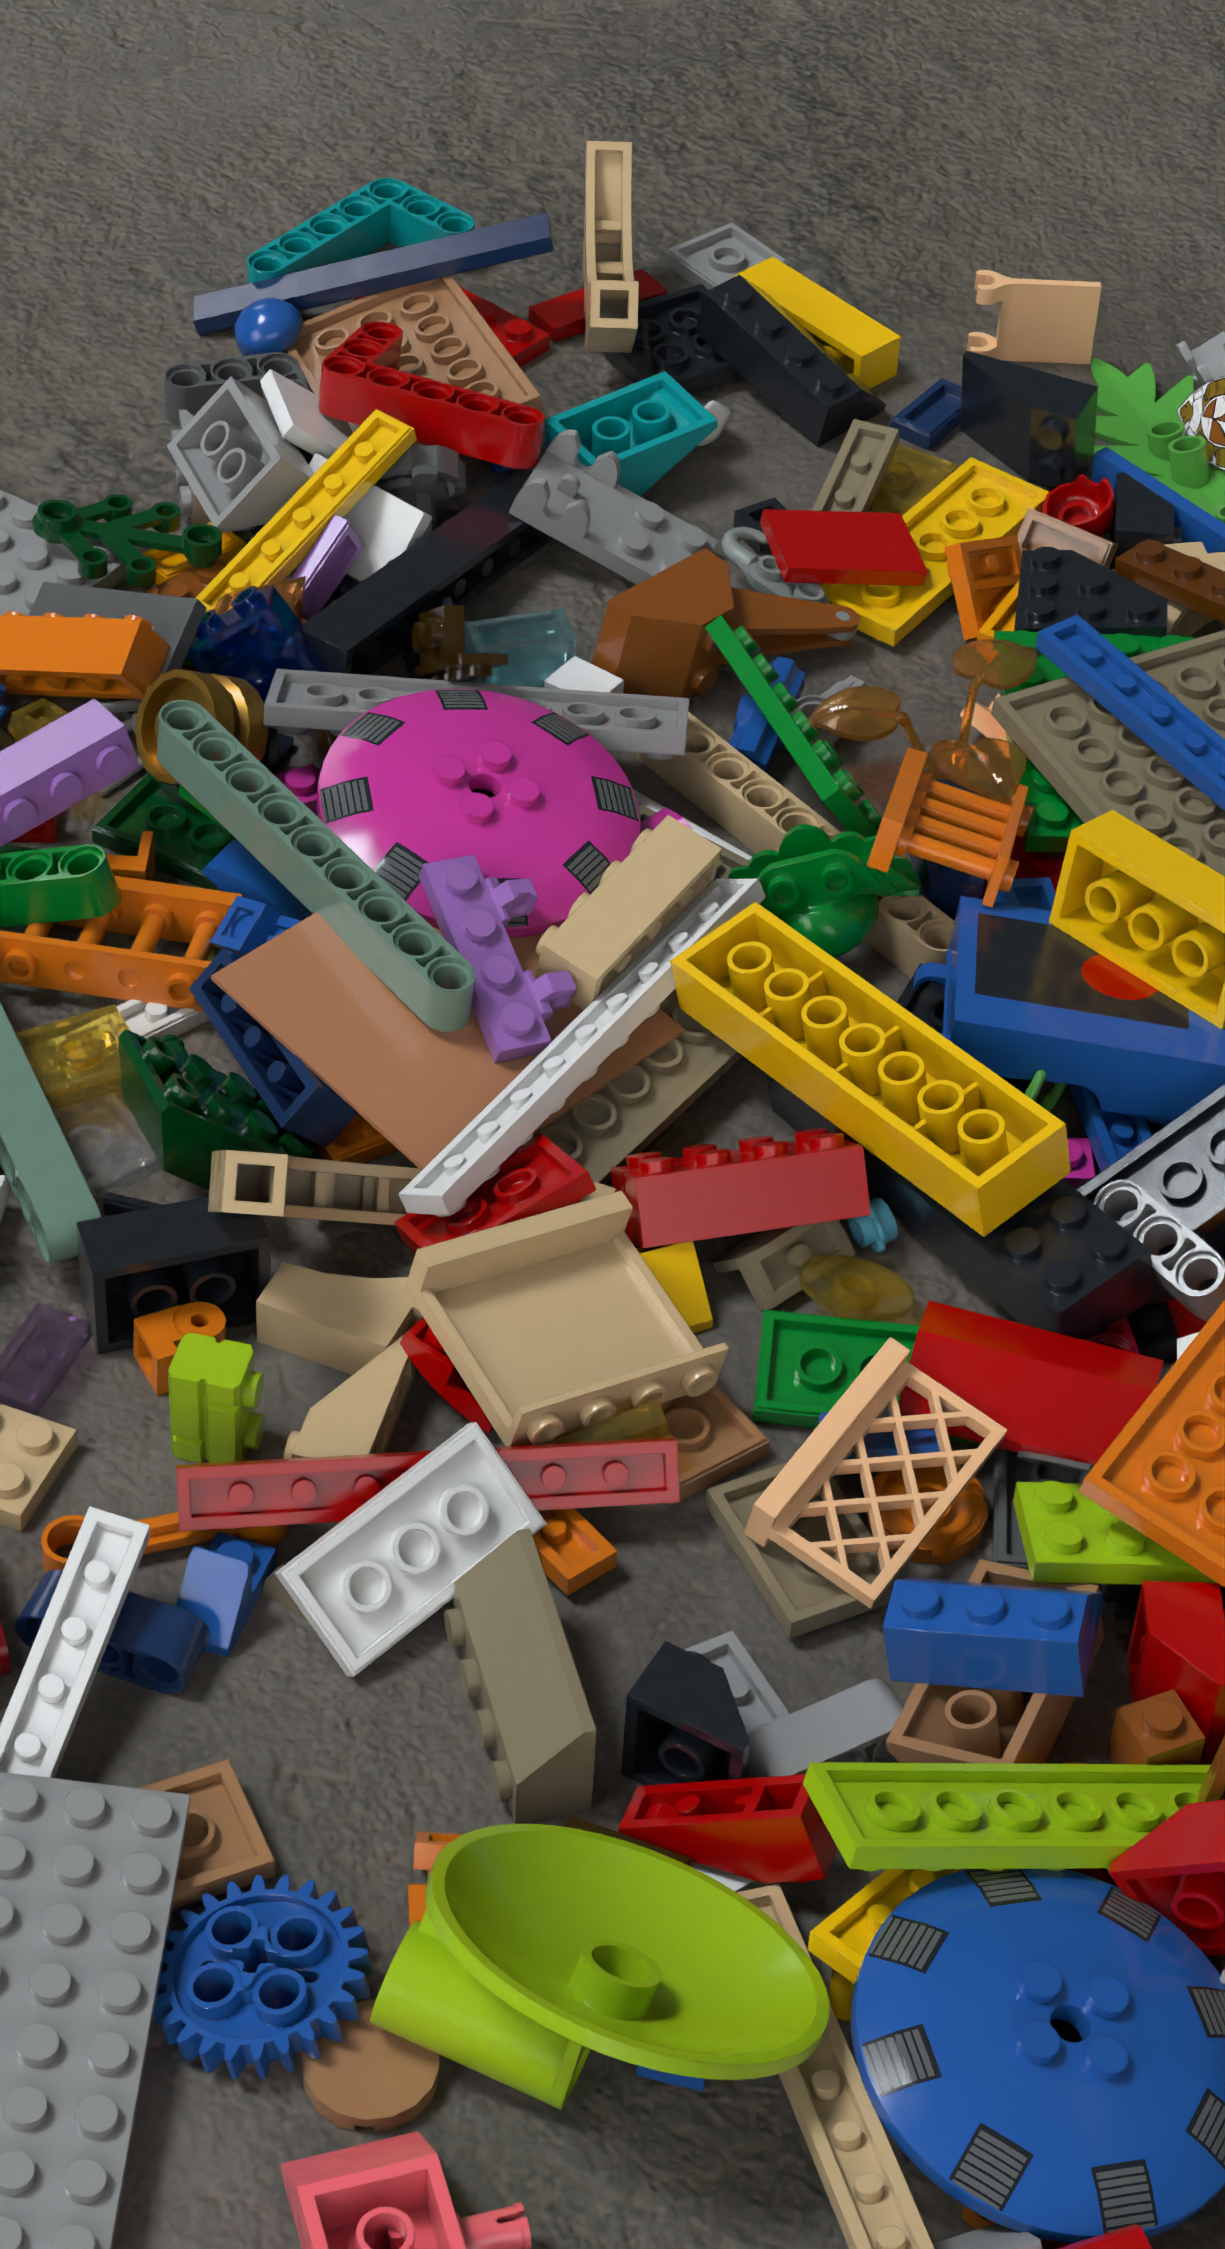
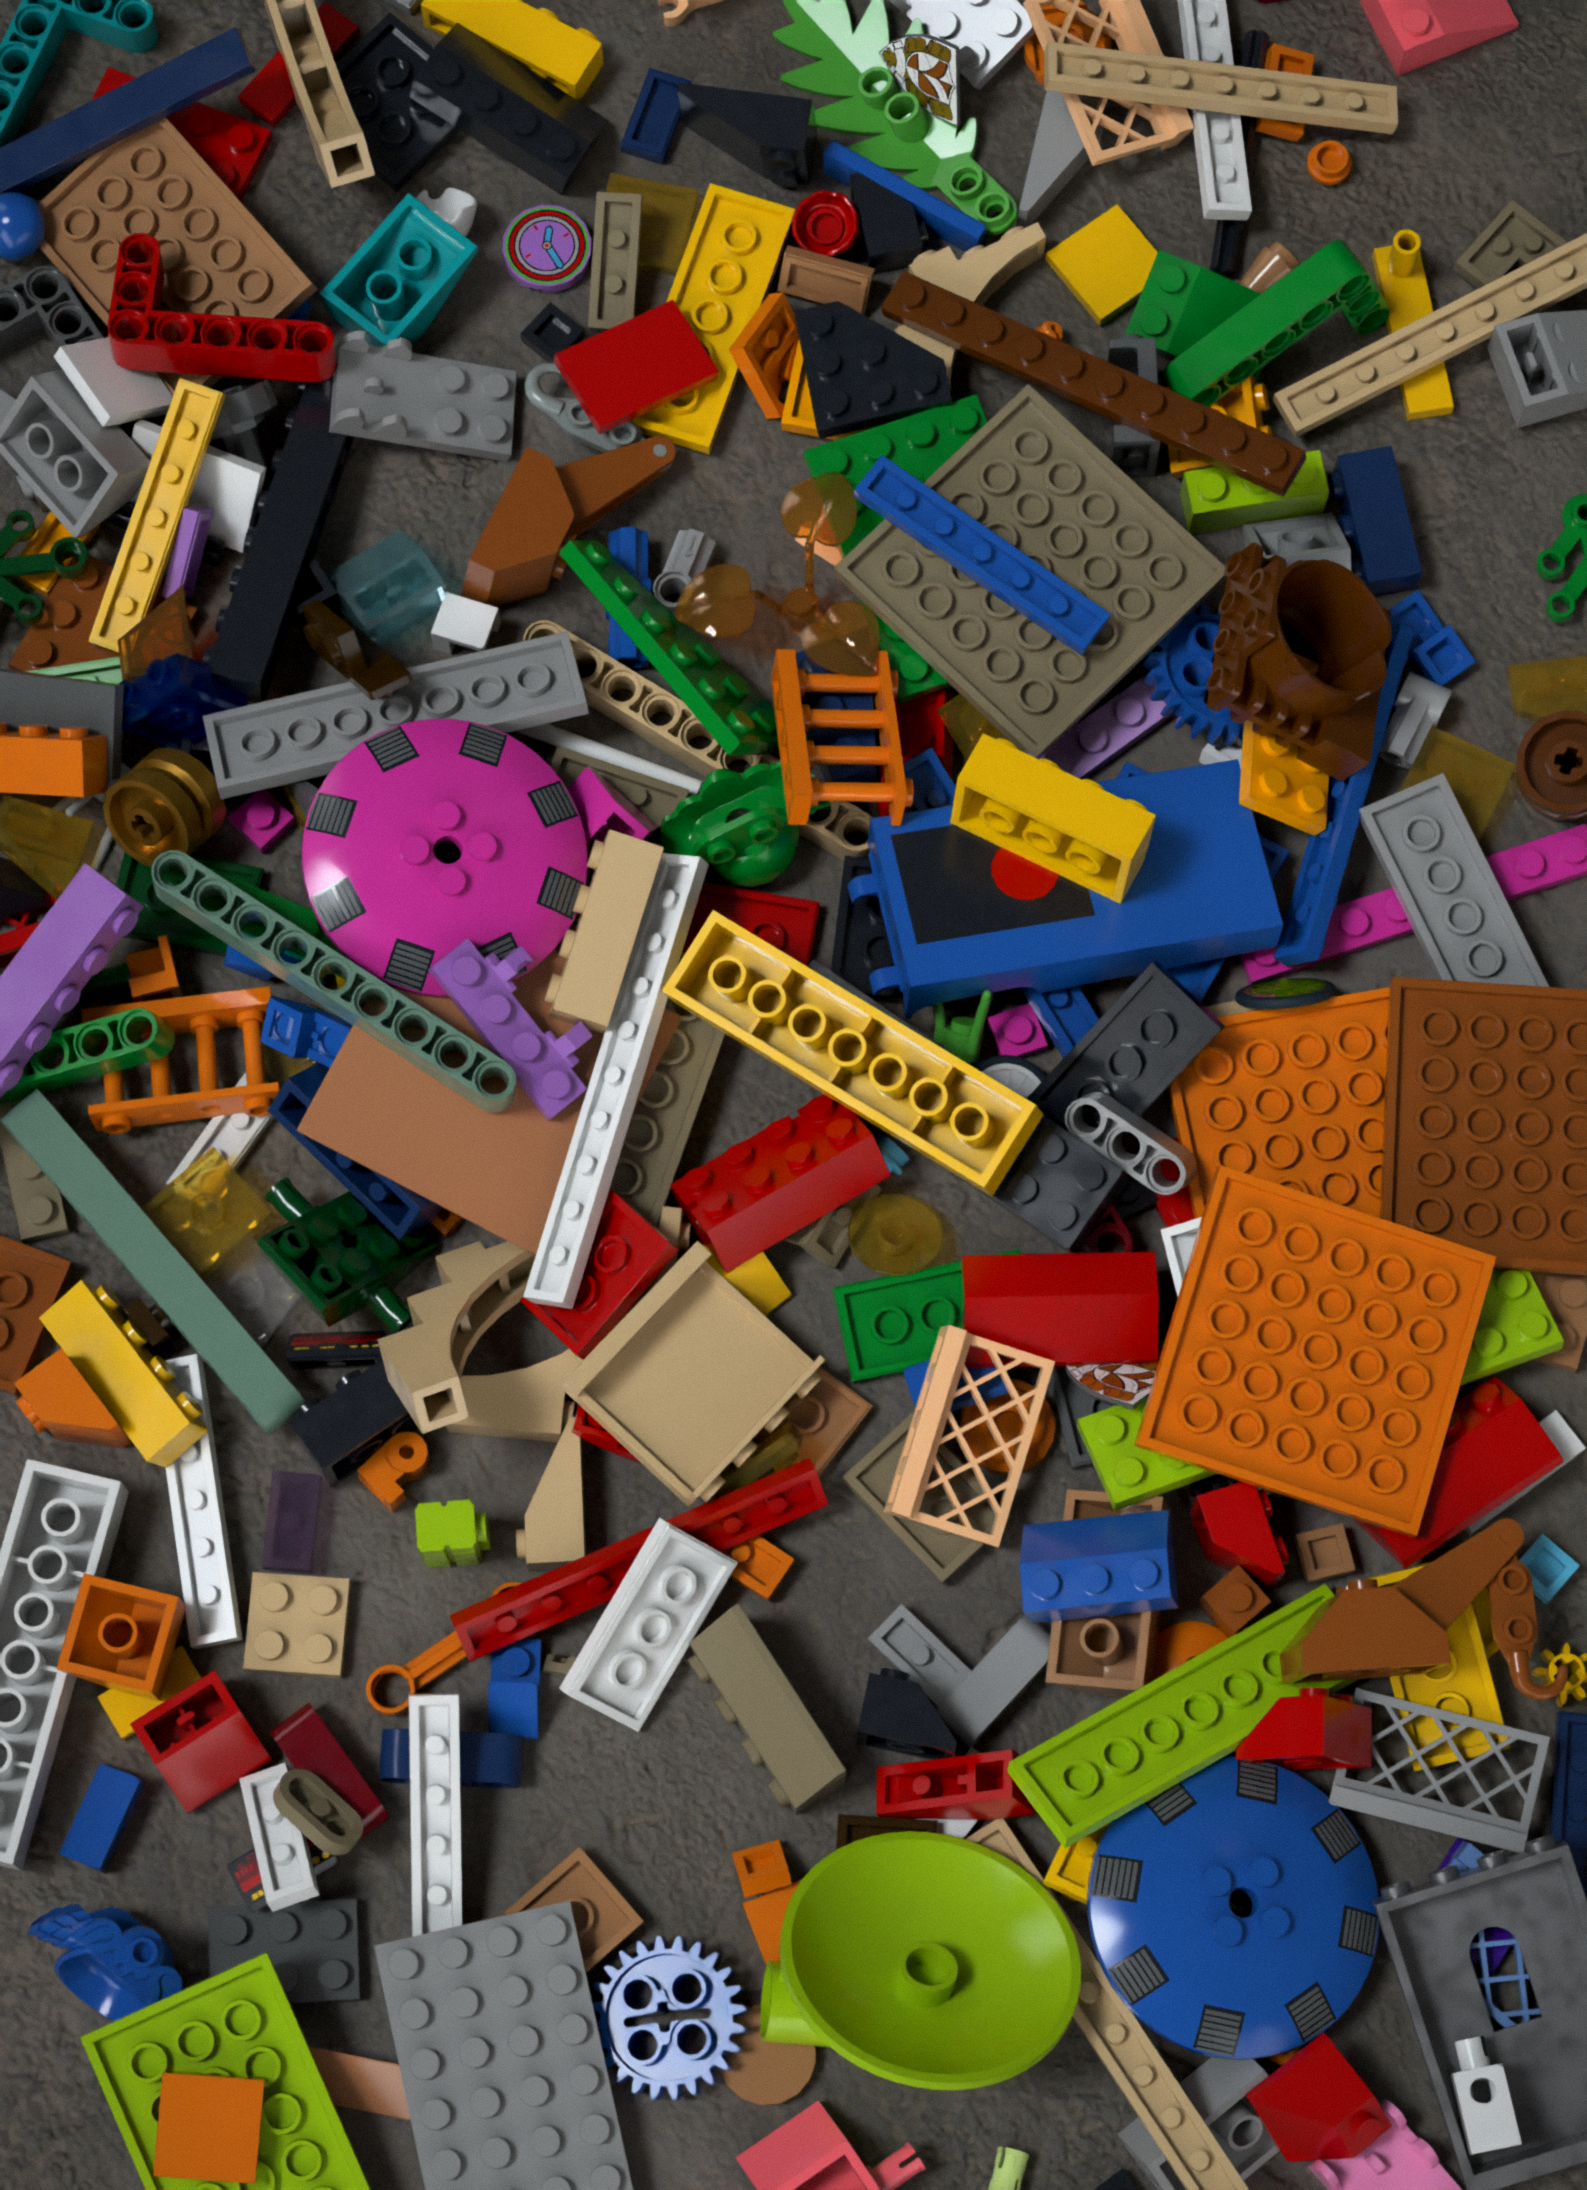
camera: 15 degrees left, 30 degrees up
(785, 470) = (547, 248): none -> tile

